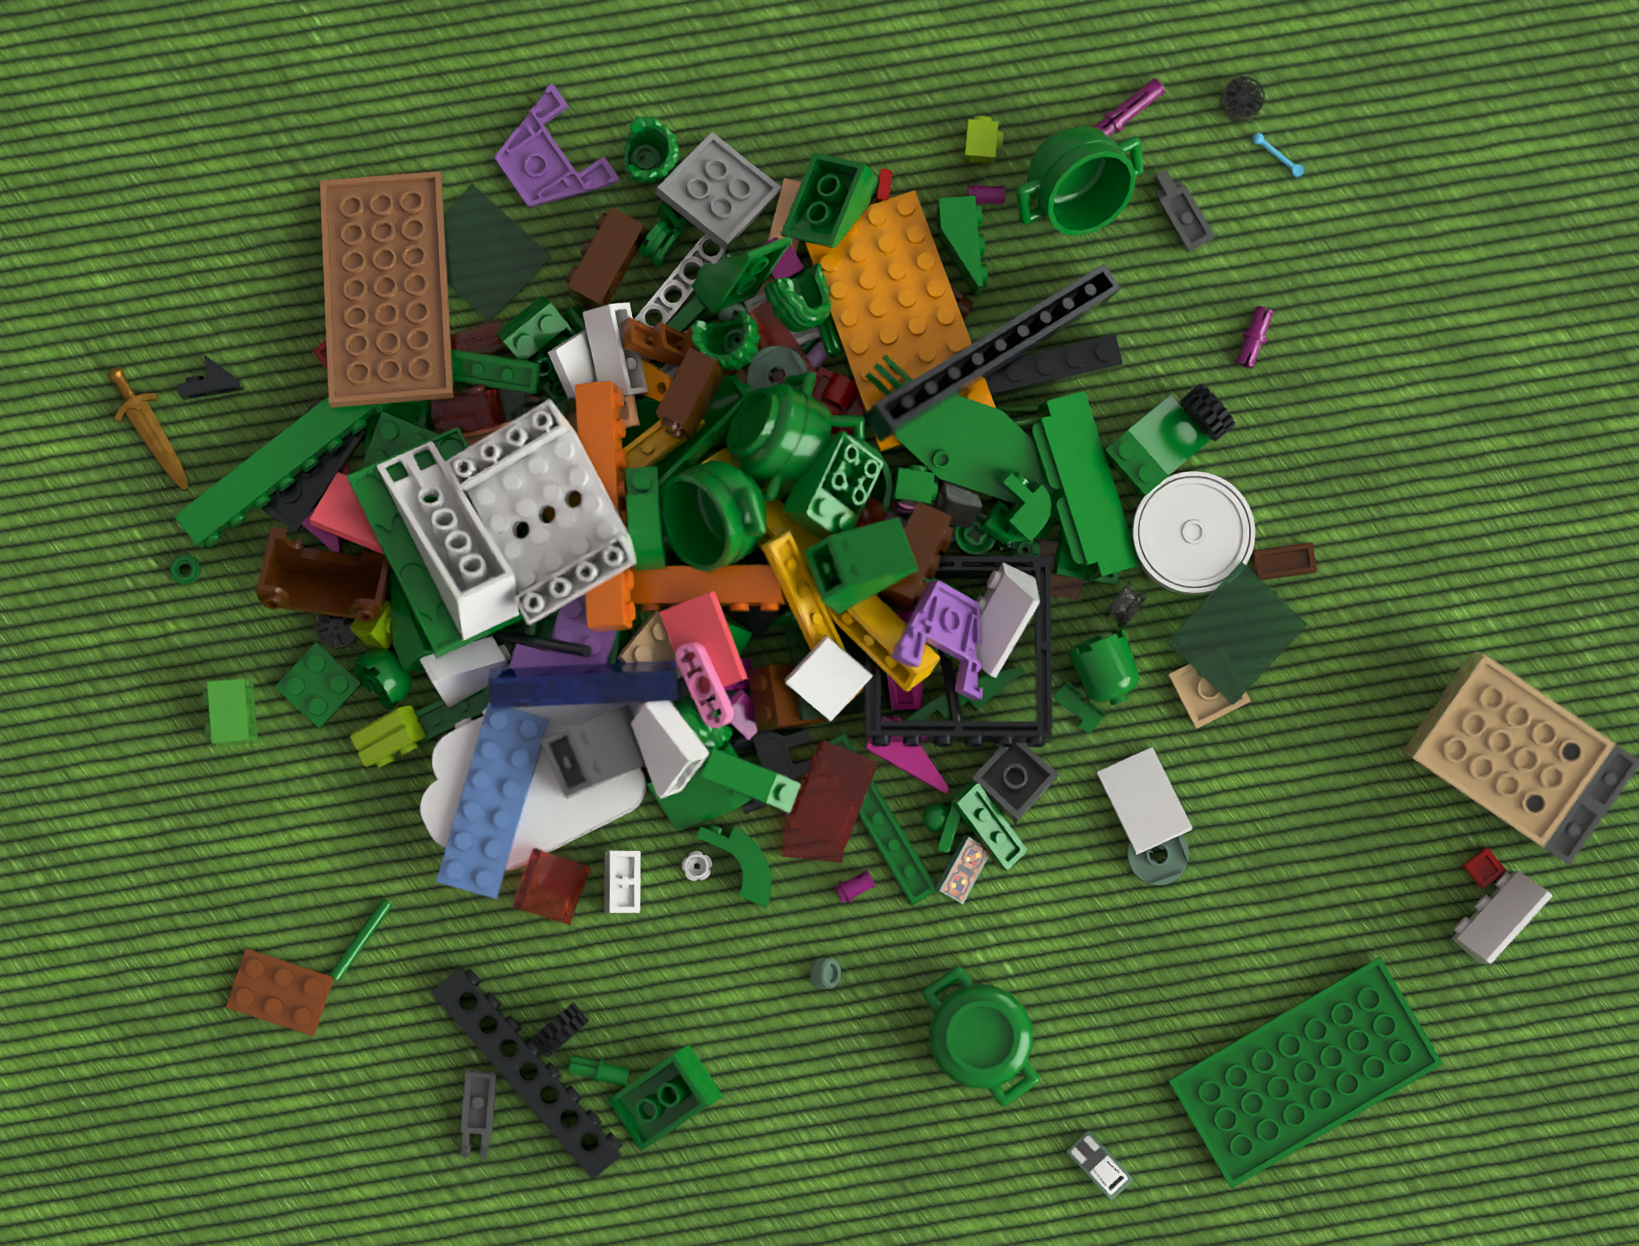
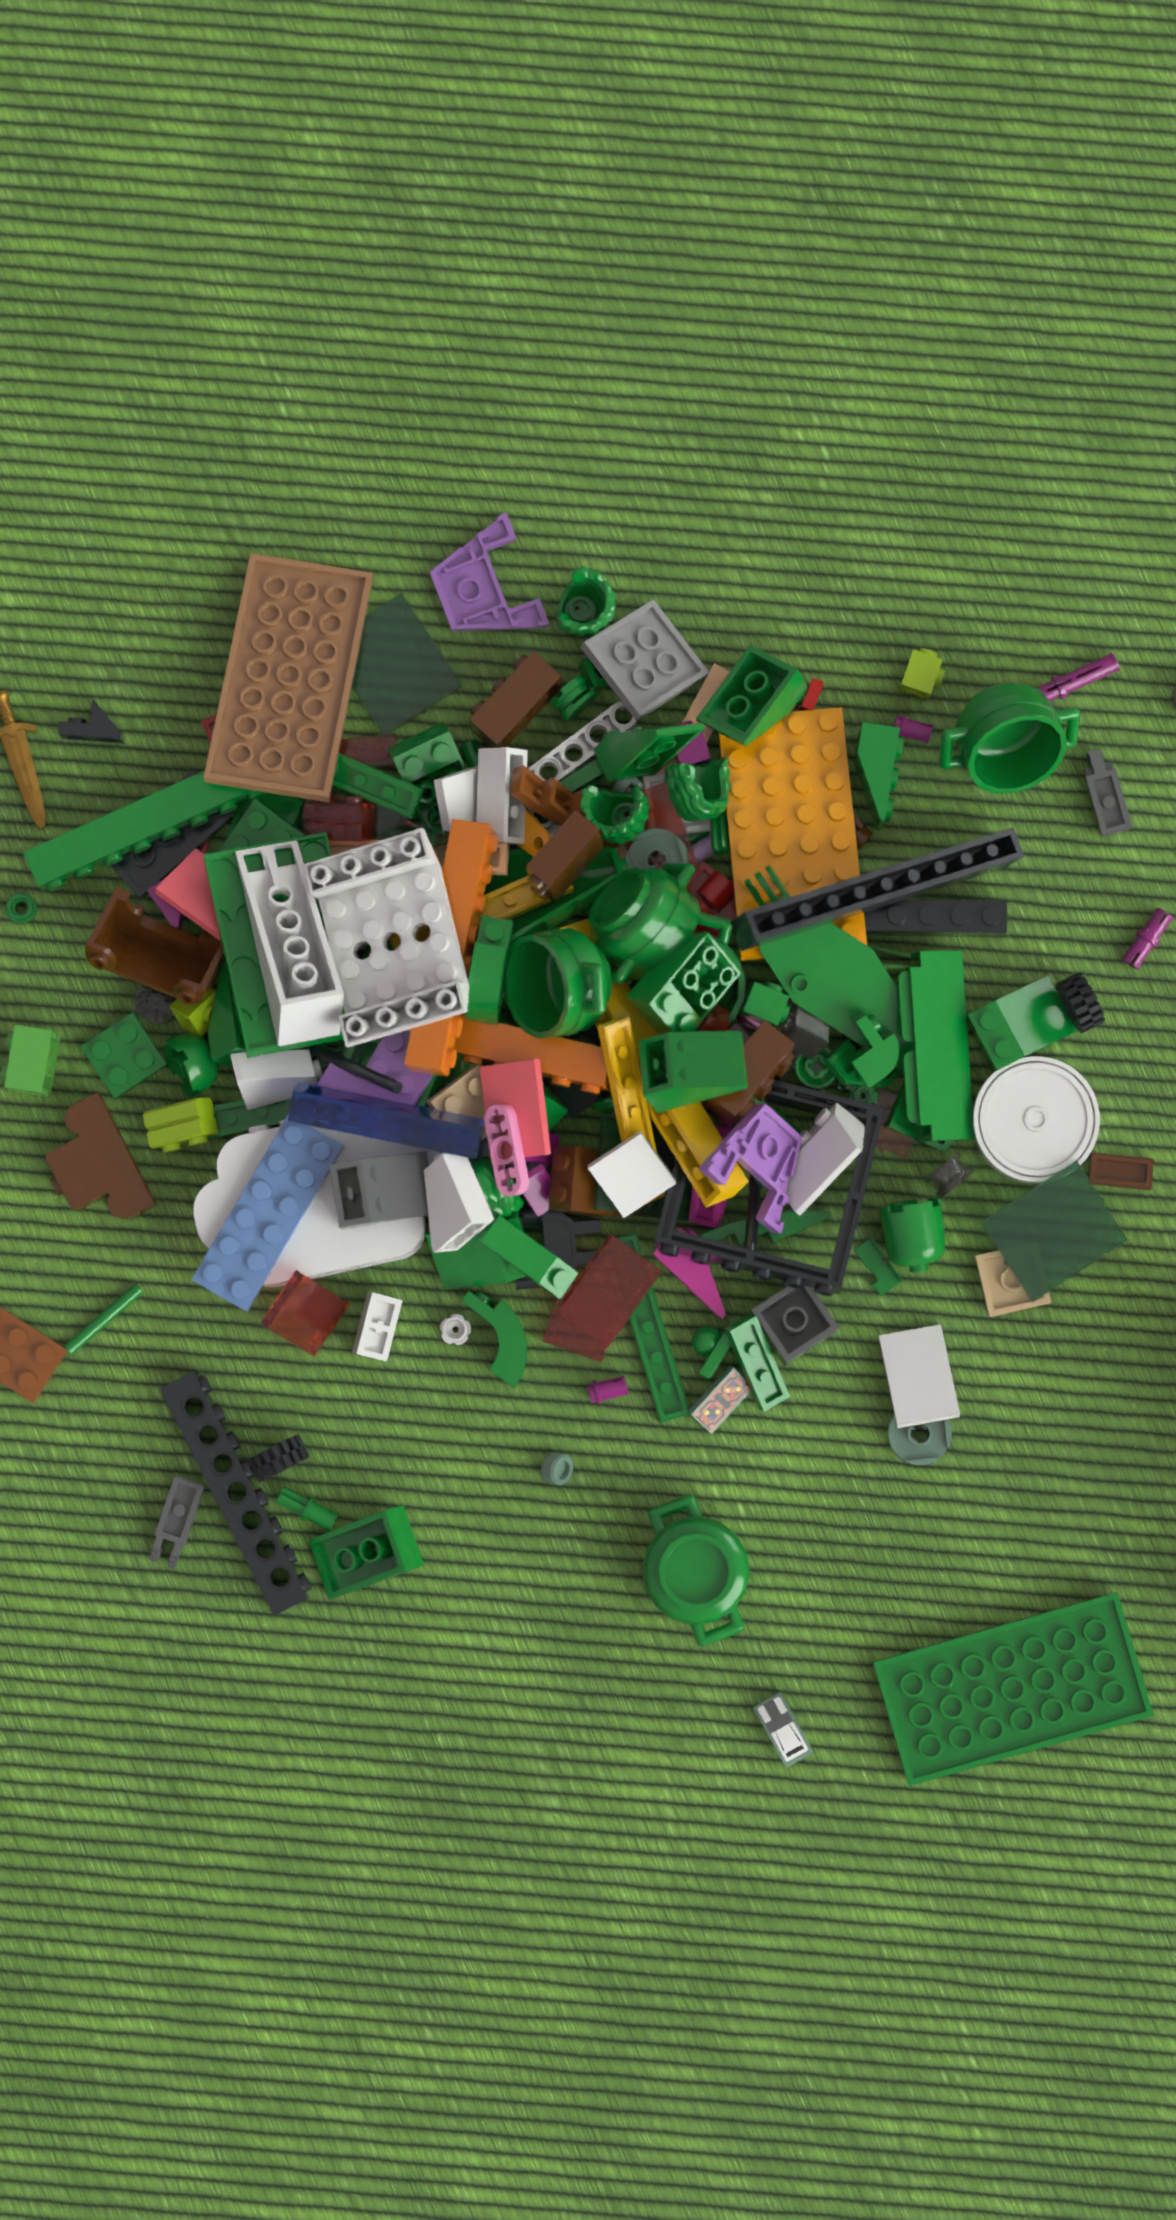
camera: 25 degrees right, 0 degrees up
(319, 793) = (98, 1163): none -> reddish brown brick

